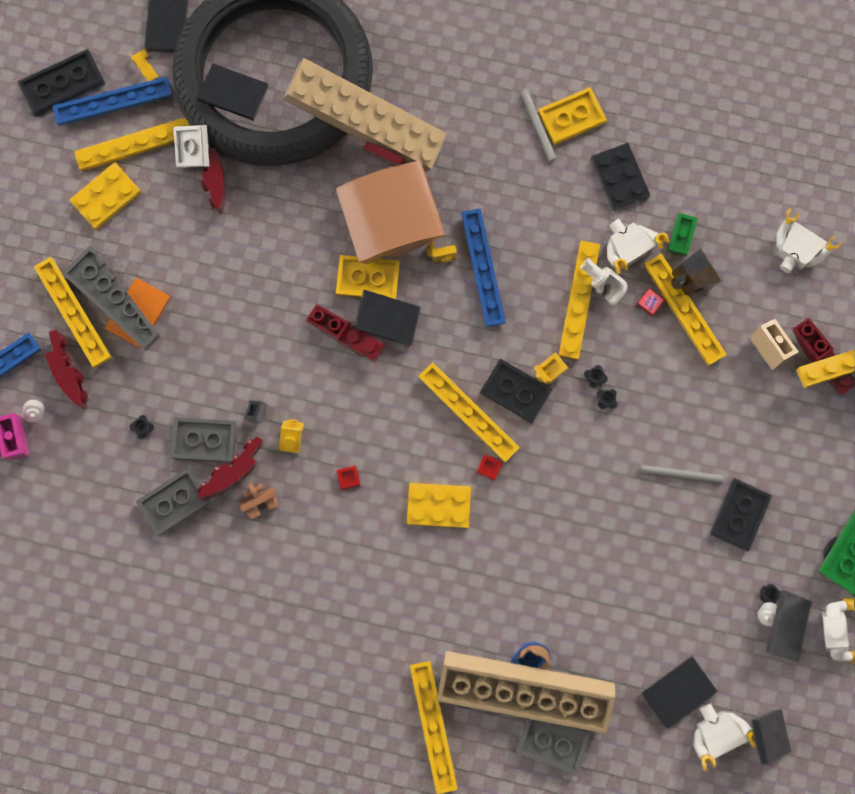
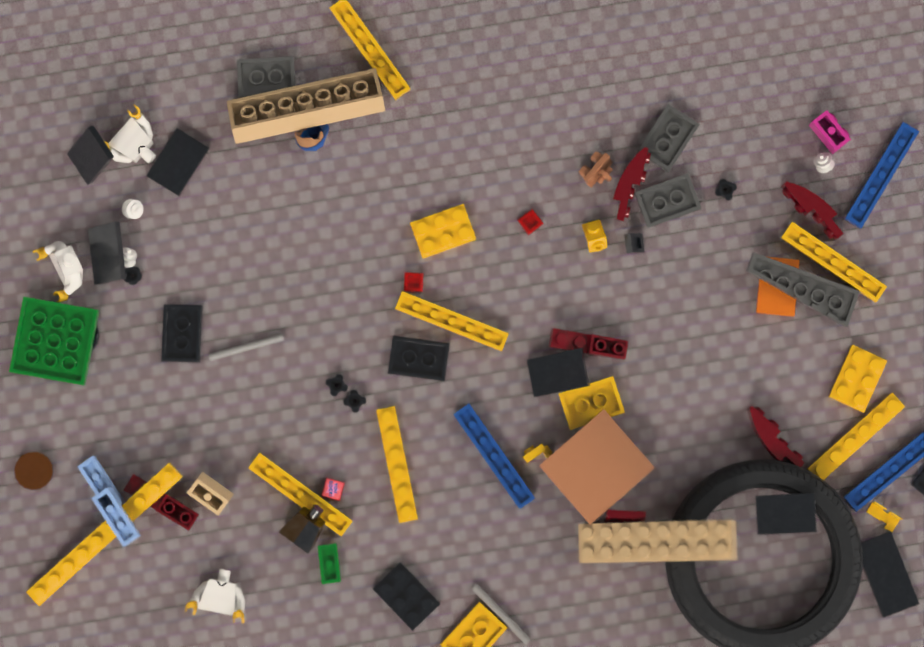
camera: 150 degrees right, 5 degrees up
(191, 146) = (801, 452): white tile -> none
(550, 369) = (396, 388): yellow bracket -> none
(615, 284) = (386, 488): white piece -> none
(631, 244) = (371, 532): torso -> none
(745, 662) = (132, 208): none -> white wheel

